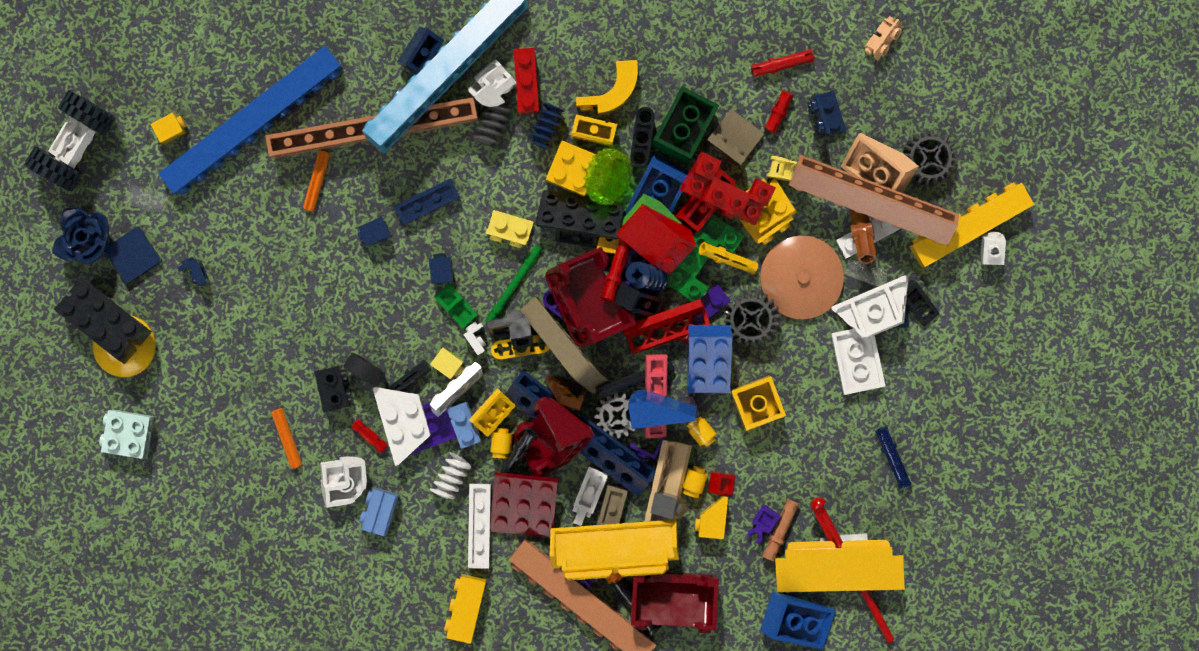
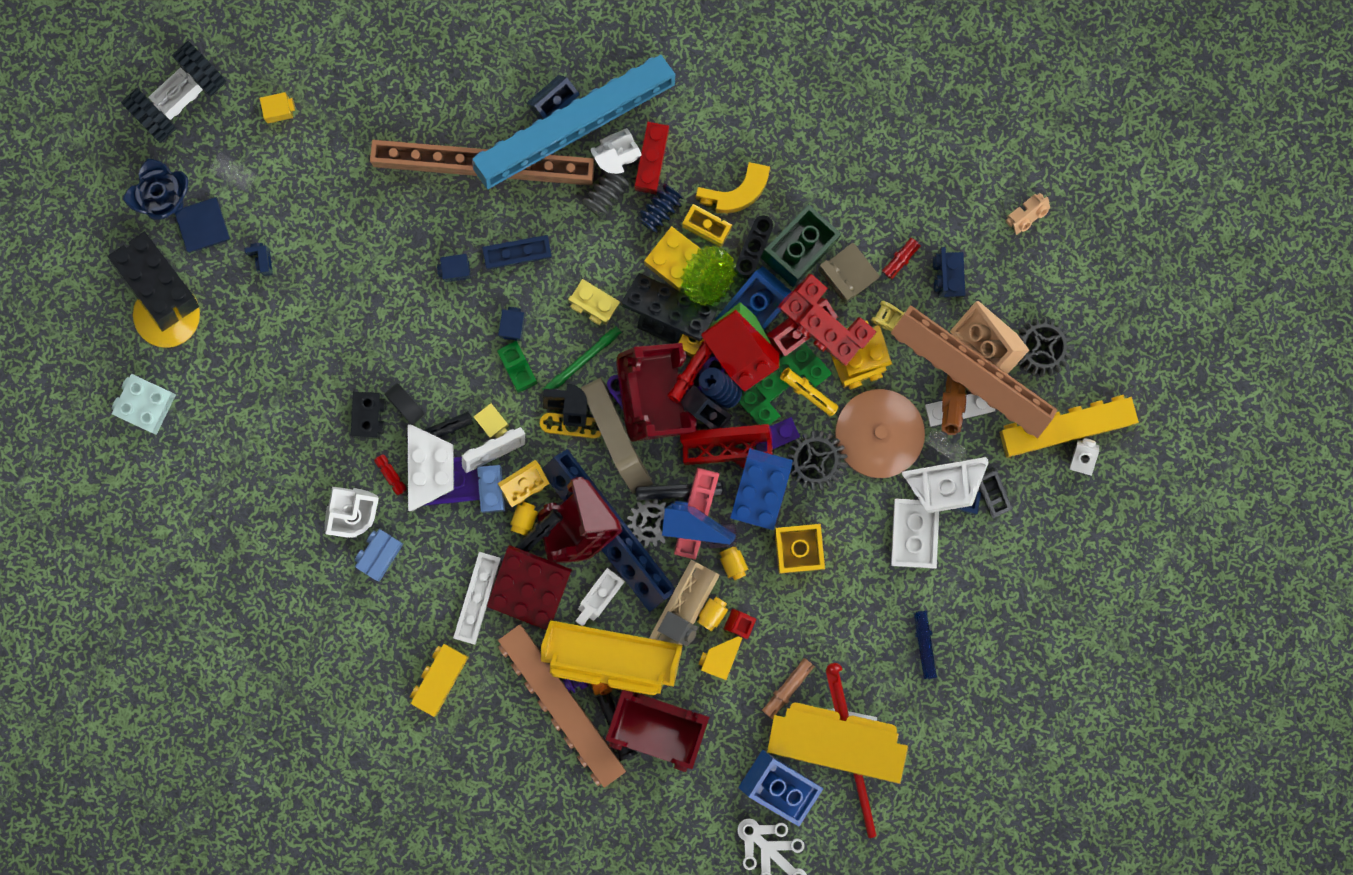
camera: 15 degrees right, 5 degrees down
(250, 121) = (361, 122): blue brick -> none
(286, 438) = (304, 454): orange axle -> none
(316, 180) = (410, 201): orange axle -> none
(451, 477) = (462, 539): white piece -> none
(475, 341) = (527, 408): white bracket -> none
(566, 392) = (607, 485): reddish brown wing -> none
(612, 506) = (620, 614): dark tan hinge -> none
(644, 454) = (668, 570): dark purple bracket -> none
(766, 521) = (774, 675): dark purple plate -> none
(774, 65) = (917, 210): red pin -> none

